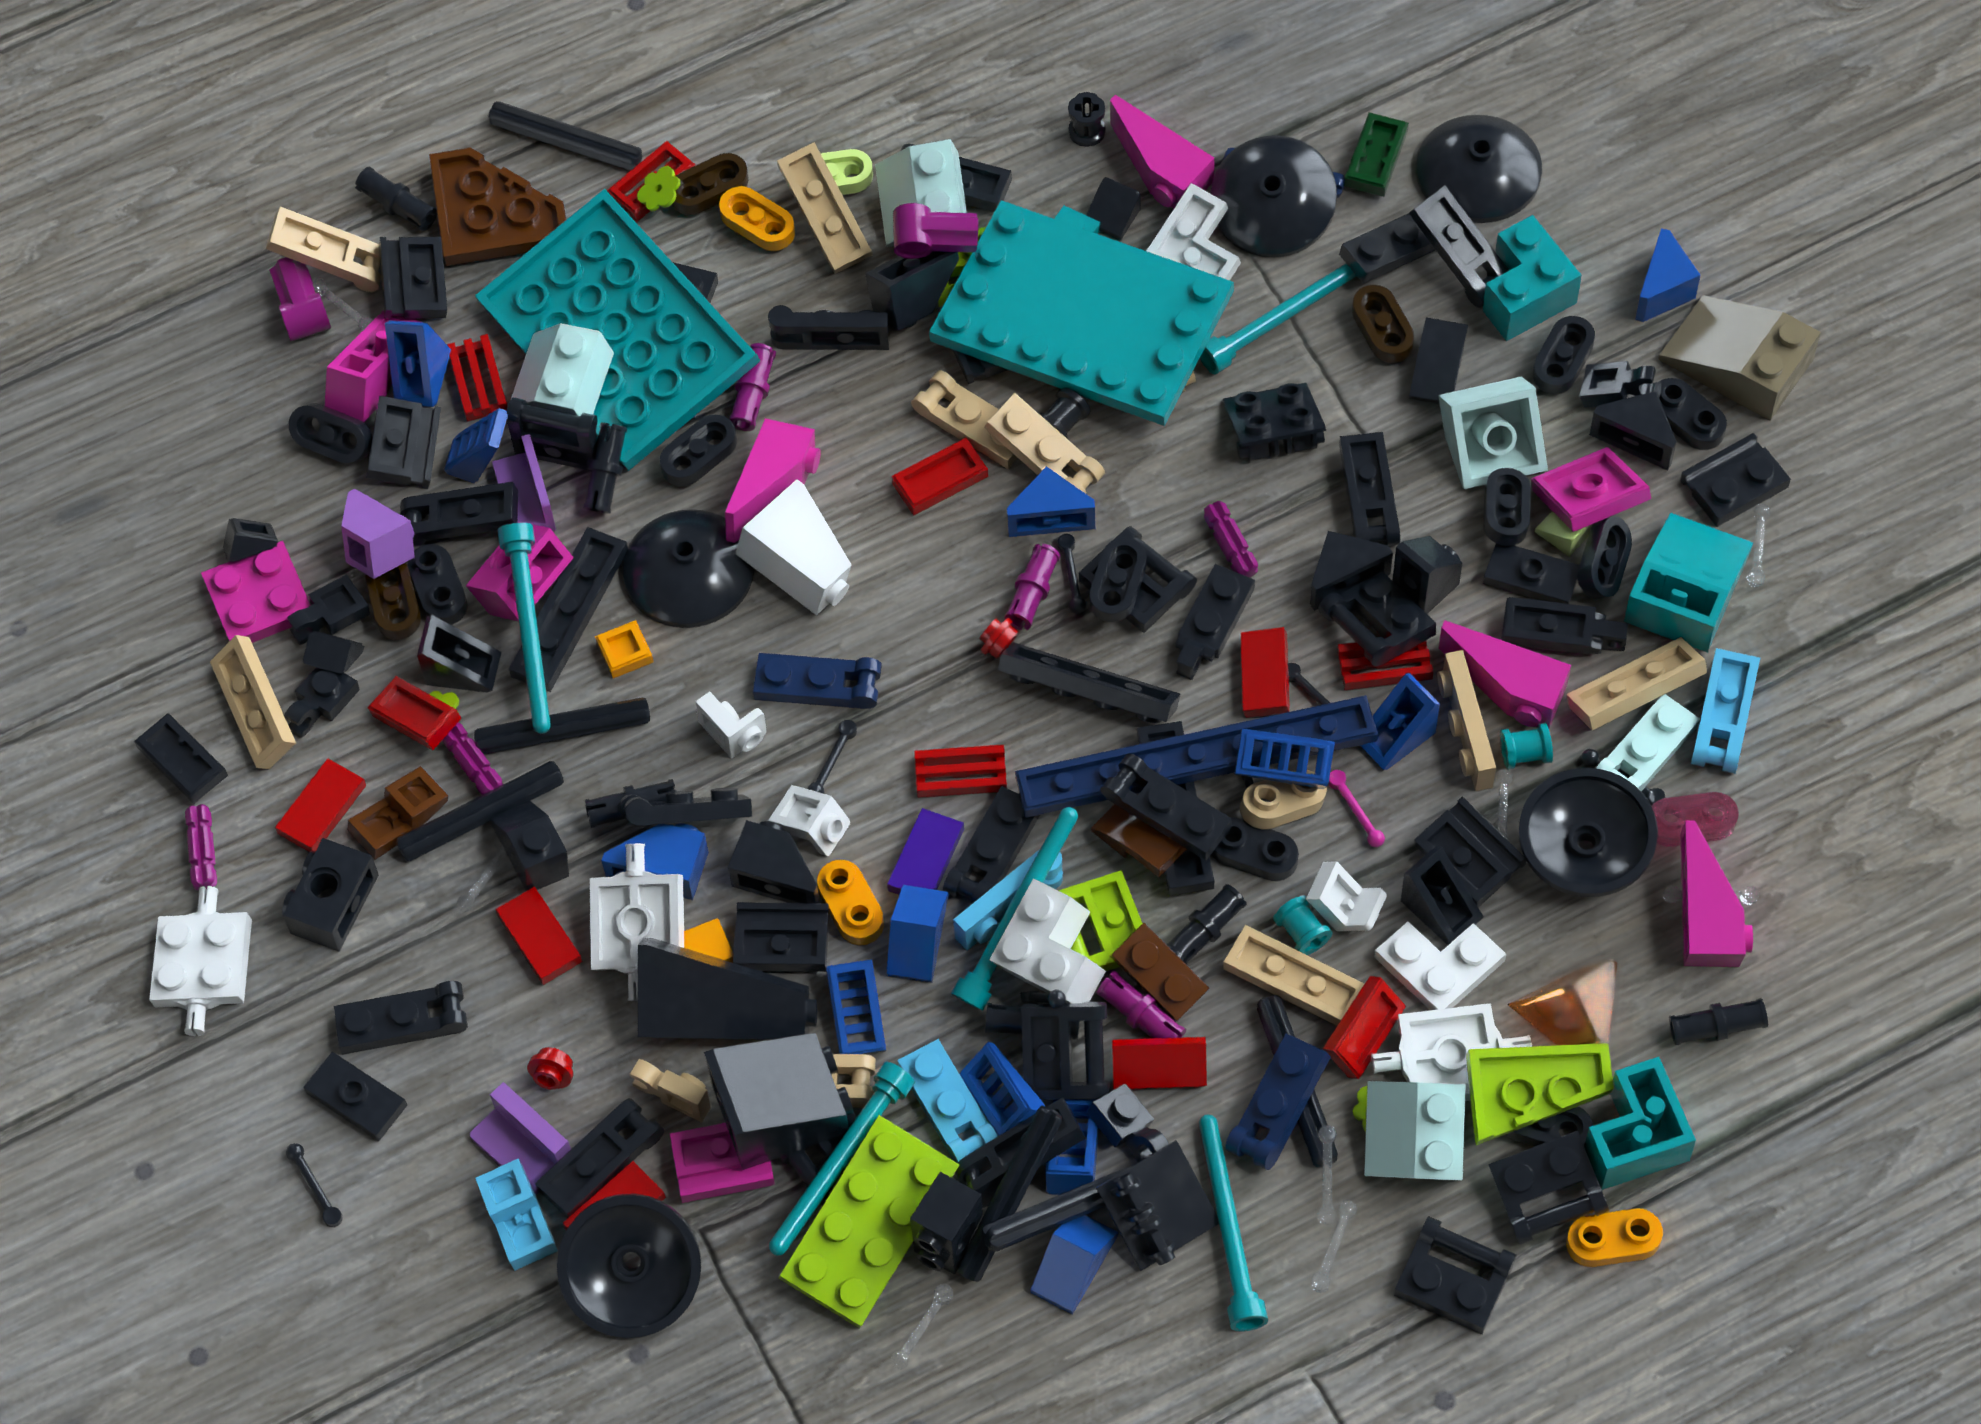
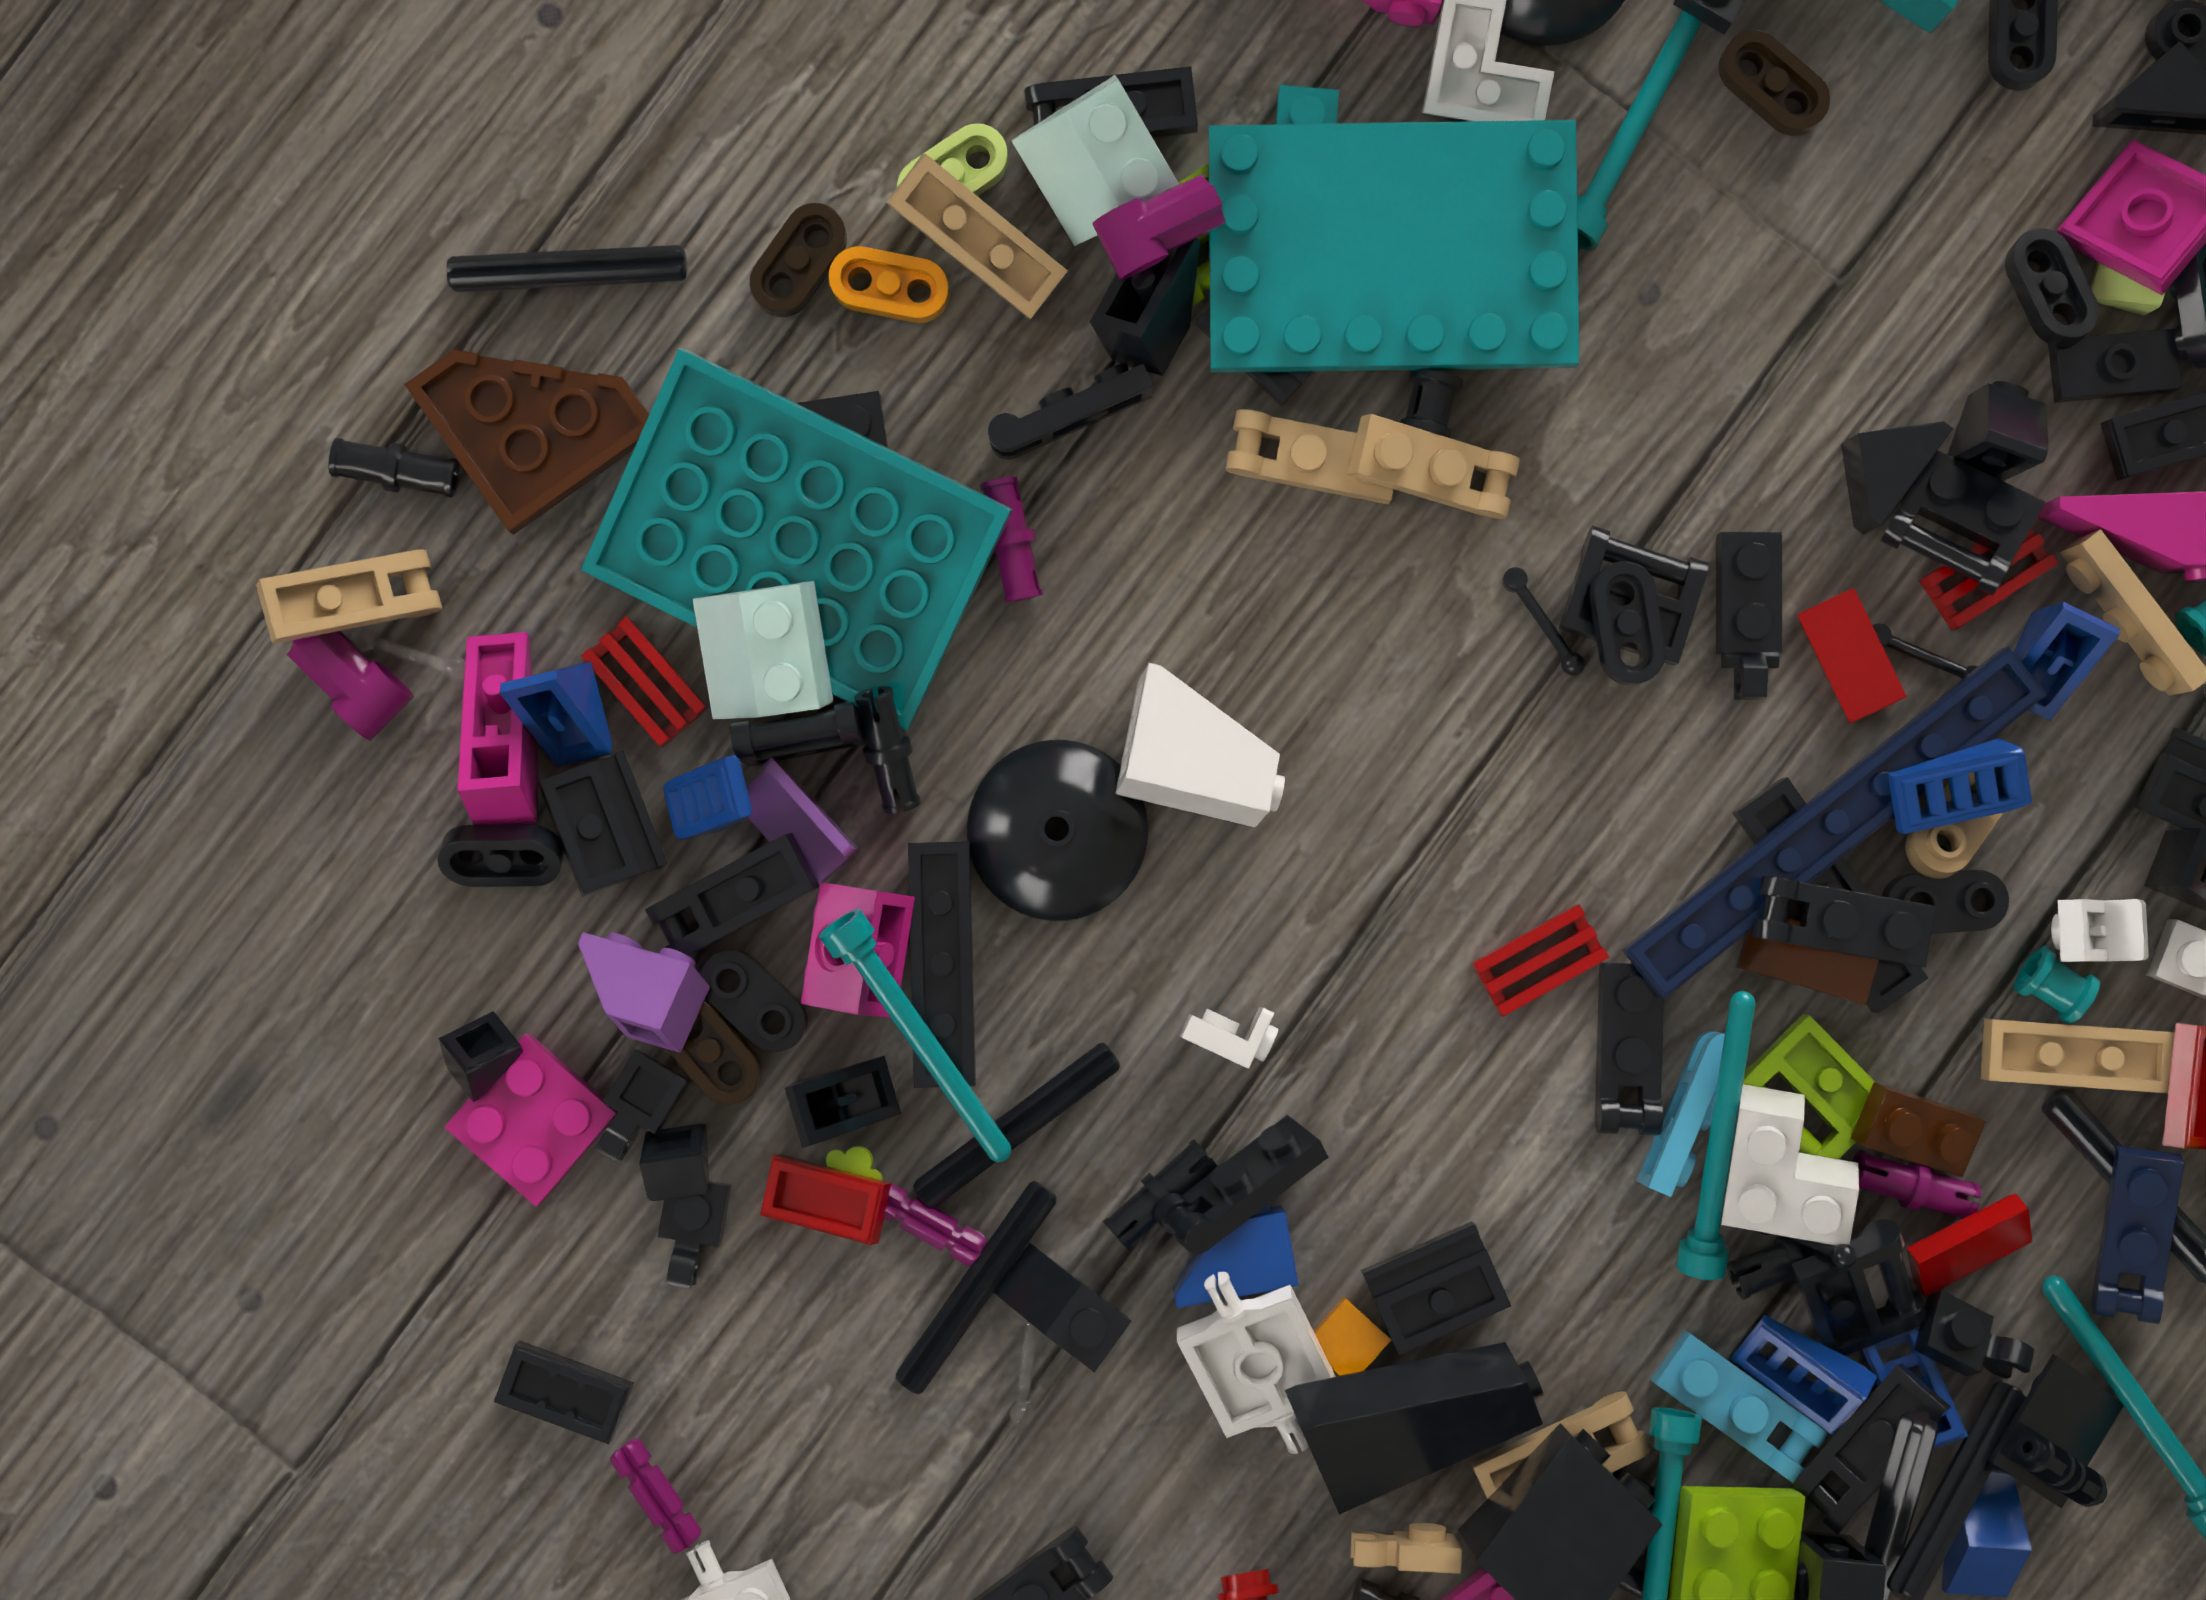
camera: 30 degrees left, 25 degrees up
(252, 702) = (613, 1277): tan plate -> none
(320, 805) = (773, 1371): red tile -> none
(329, 918) = (861, 1529): black brick -> none
(405, 807) = (875, 1336): reddish brown slope -> none
(413, 277) = (483, 579): black plate -> none
(538, 935) = (1136, 1418): red tile -> none
(624, 649) = (1037, 982): light orange tile -> none
(631, 203) = (701, 333): red tile -> none
(659, 189) = (732, 297): lime plant -> none
(694, 450) = (989, 664): black plate -> none
(771, 865) = (1379, 1202): black slope -> none
(776, 460) = (1109, 654): dark pink slope -> none
(811, 817) = (1391, 1115): white bracket -> none
(817, 680) = (1299, 918): dark blue plate -> none
(847, 731) = (1370, 965): black hinge -> none
(849, 899) = (1492, 1198): light orange plate -> none
(852, 972) = (1545, 1302): blue slope -> none
(916, 933) = (1599, 1204): blue slope -> none
(926, 852) = (1553, 1095): dark purple tile -> none
(939, 476) = (1311, 557): red tile -> none
(998, 637) = (1503, 760): red plate -> none
(1032, 586) = (1508, 667): magenta pin -> none
(1050, 506) = (1478, 541): blue slope -> none
(1075, 678) = (1646, 772): black plate -> none
(1114, 207) = (1347, 60): black slope -> none
(1207, 923) = (1938, 1037): black pin -> none
(1230, 539) = (1722, 486): magenta axle -> none
(1275, 416) = (1699, 285): black hinge -> none
(1338, 782) = (2082, 819): dark pink hinge -> none
(1369, 487) = (1865, 337): black plate -> none
(1438, 359) = (1870, 107): black slope -> none
(1493, 430) = (1986, 180): light aqua slope -> none
(1614, 381) = (2105, 46): black plate -> none

